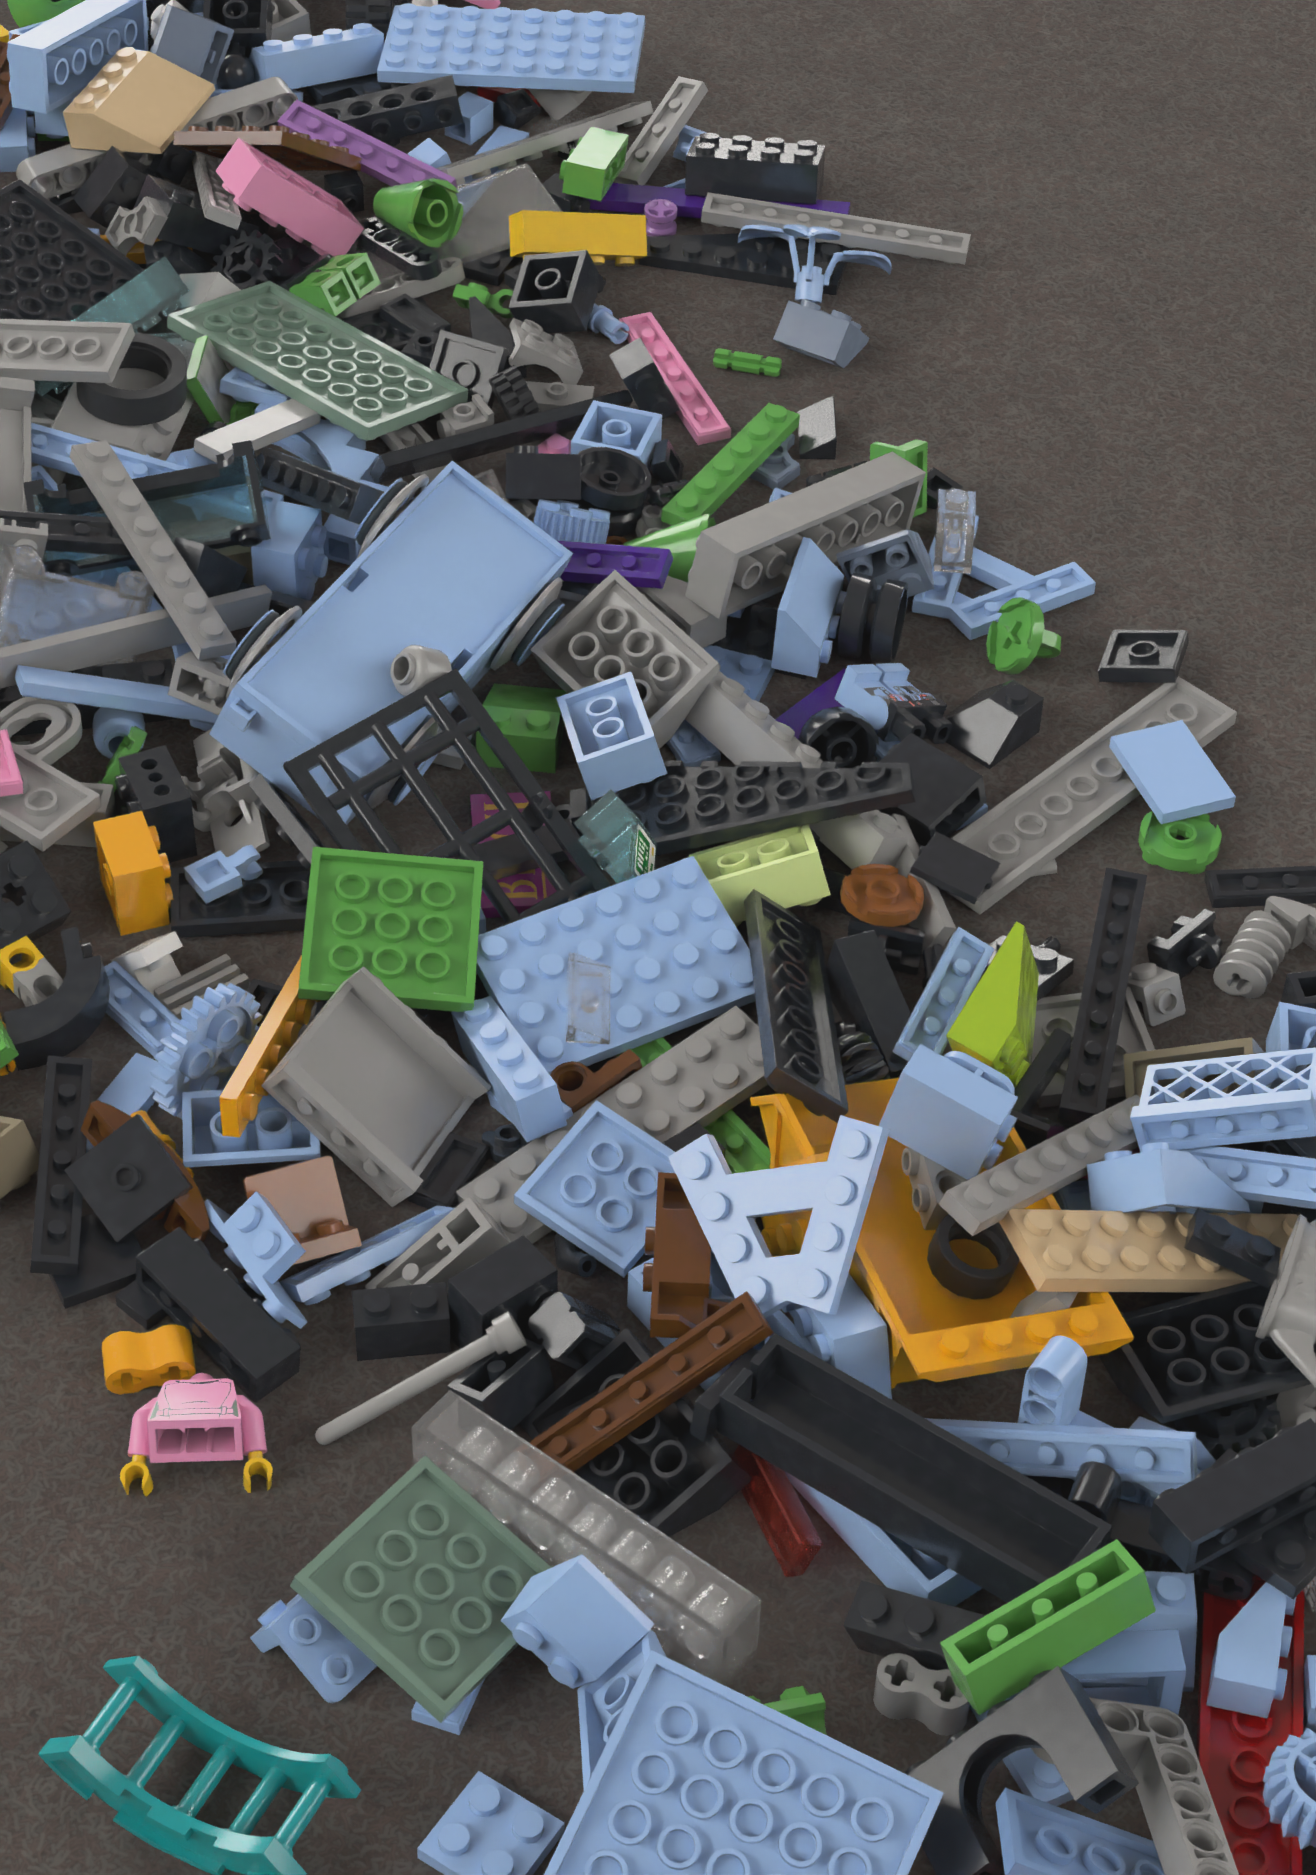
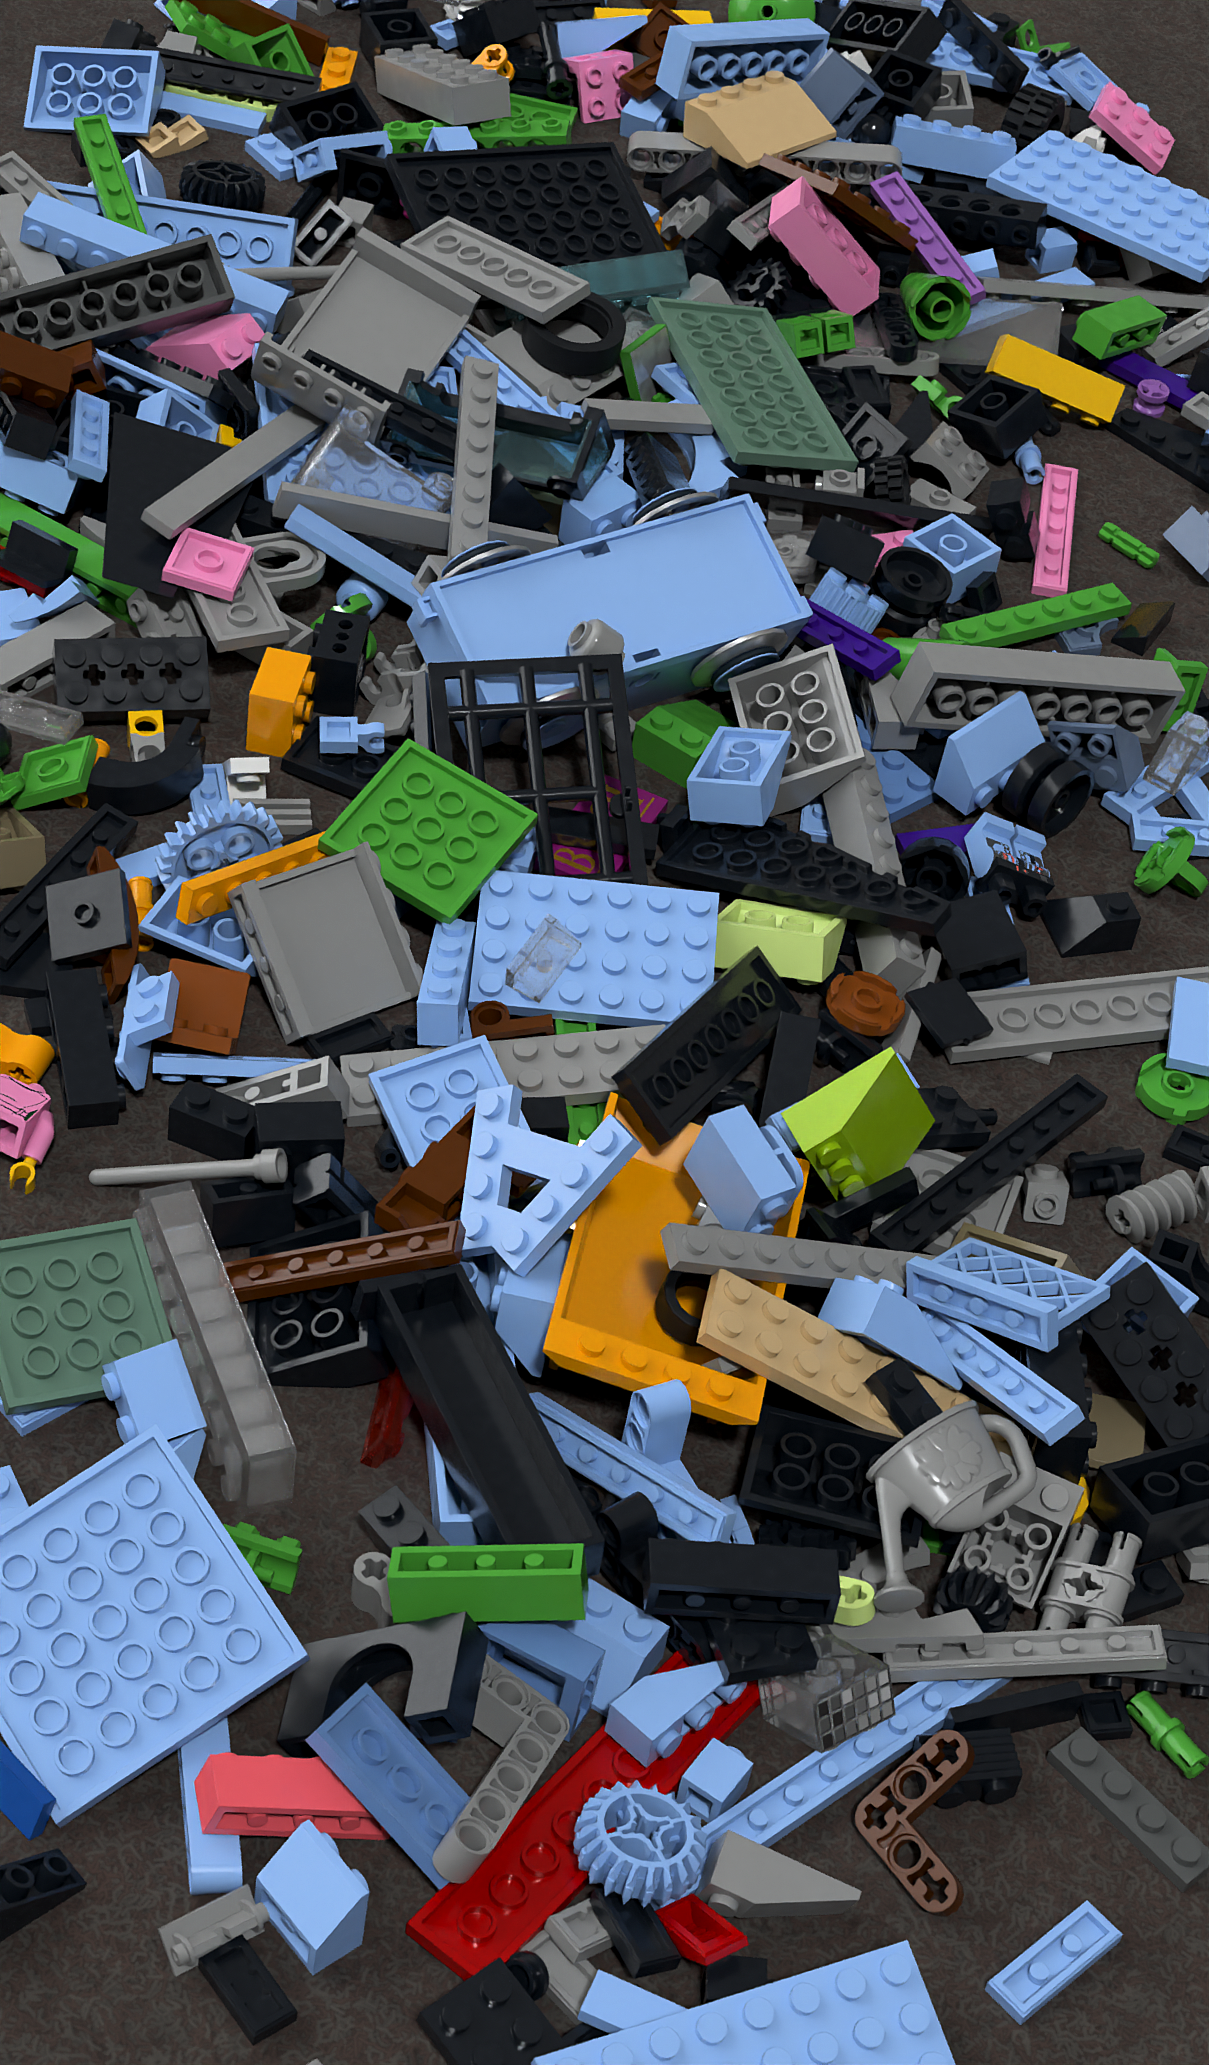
camera: 25 degrees right, 0 degrees up
(617, 839) = (672, 851): clear light blue slope -> none

